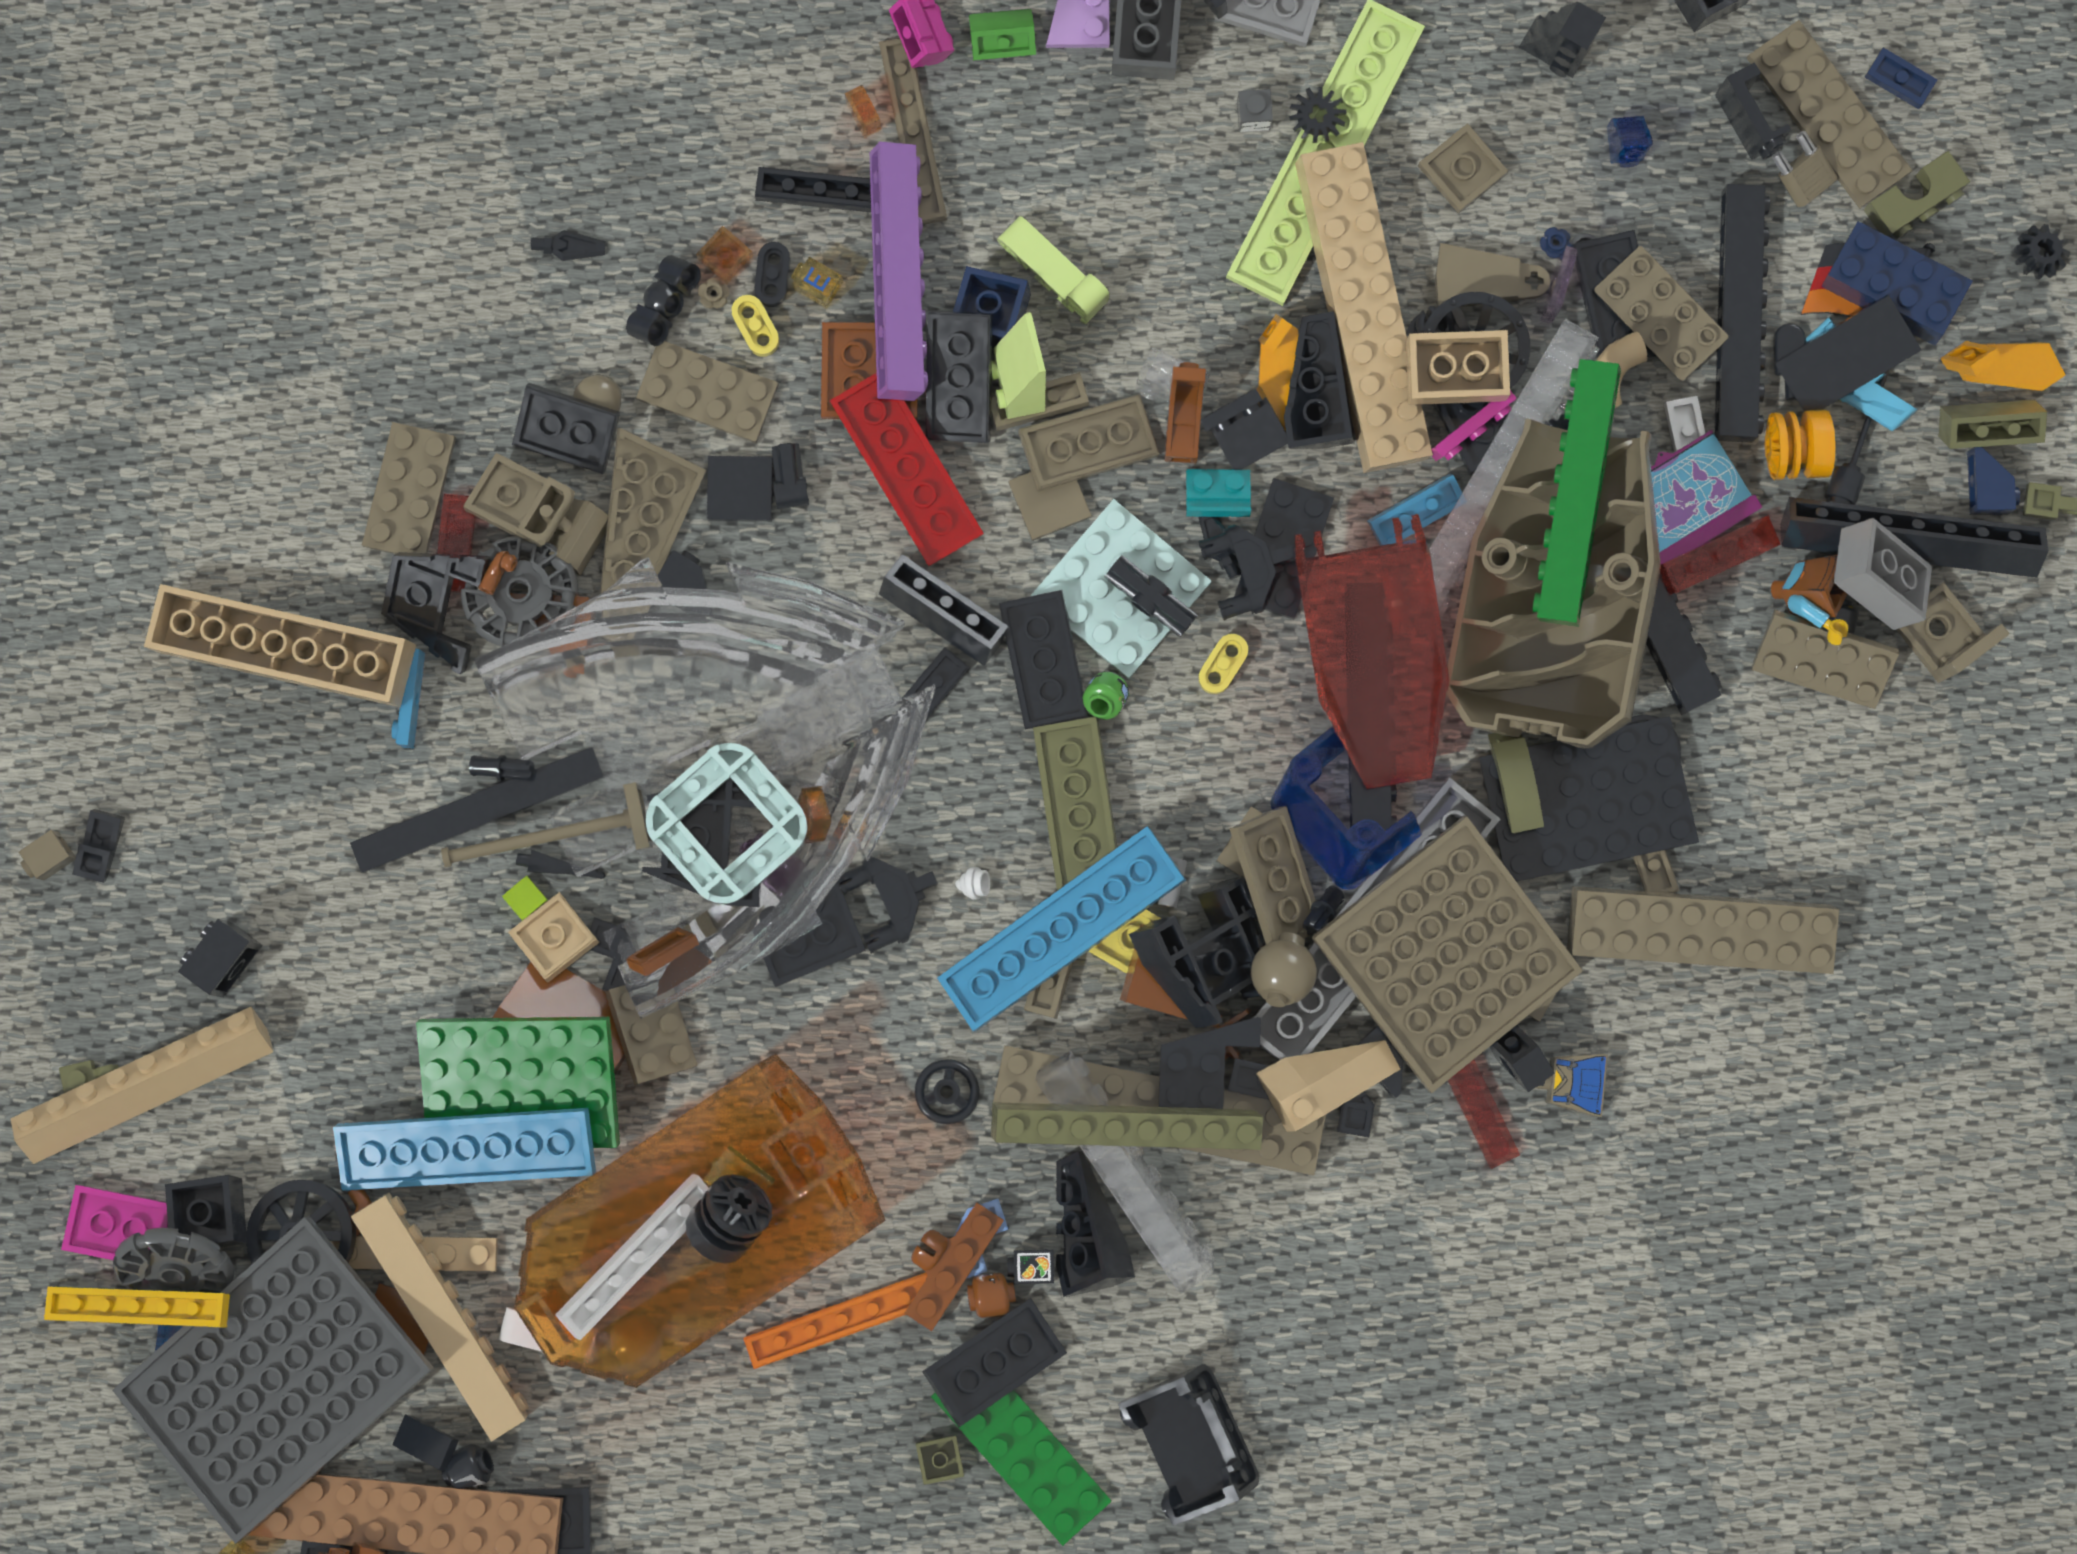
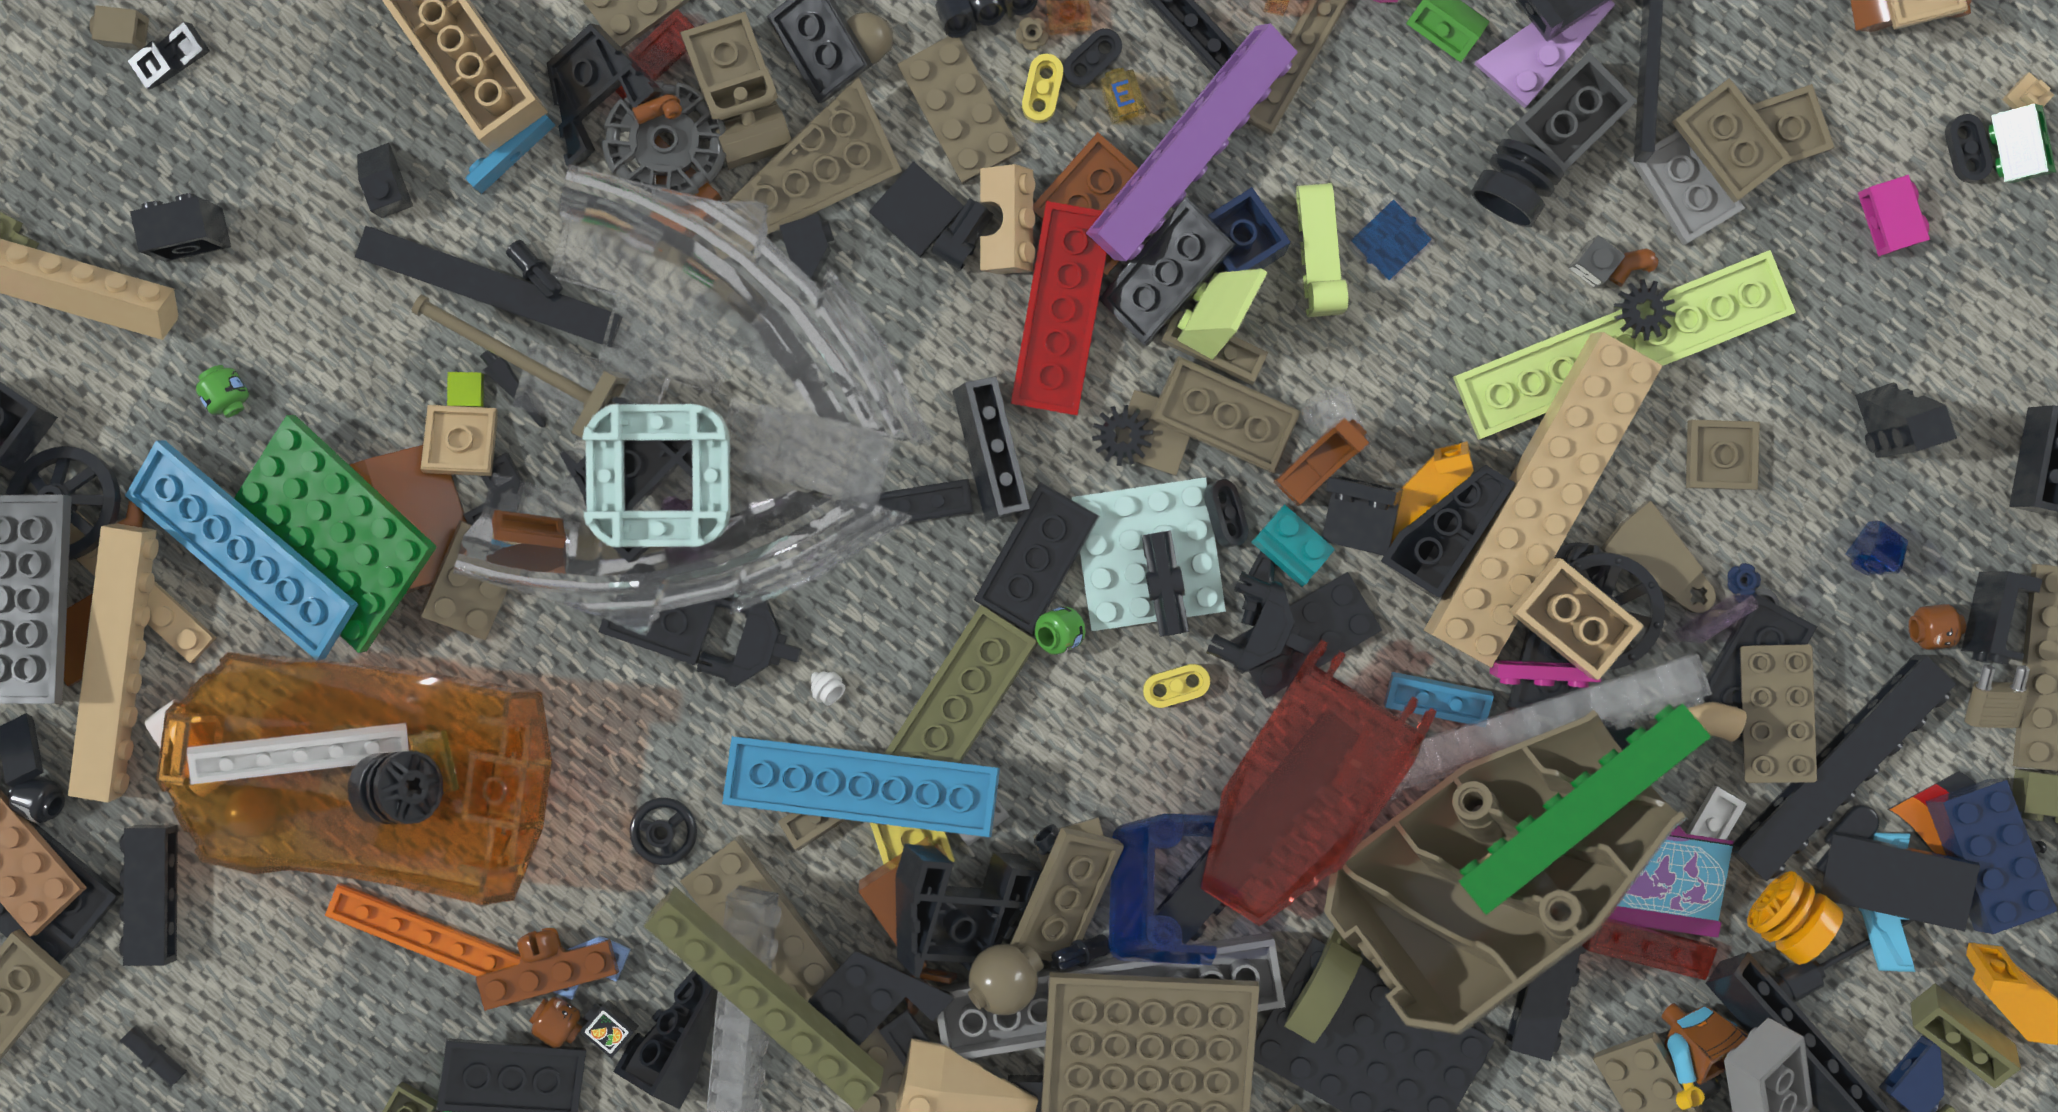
camera: 45 degrees right, 5 degrees up
(335, 799) = (382, 181): none -> black slope
(348, 1052) = (222, 391): none -> bright green head
(612, 1465) = (149, 895): none -> black brick
(816, 812) = (740, 526): clear orange piece -> none
(832, 454) = (1012, 245): none -> tan arch
(1018, 528) = (1108, 435): none -> black gear
(1097, 219) = (1391, 240): none -> clear blue piece
(1150, 103) = (1517, 182): none -> black wheel
(1150, 511) = (1226, 513): none -> black plate
(1227, 852) = (1046, 838): none -> black plate
(1280, 87) = (1634, 260): none -> dark orange arm
(1717, 158) = (1937, 626): none -> dark orange head

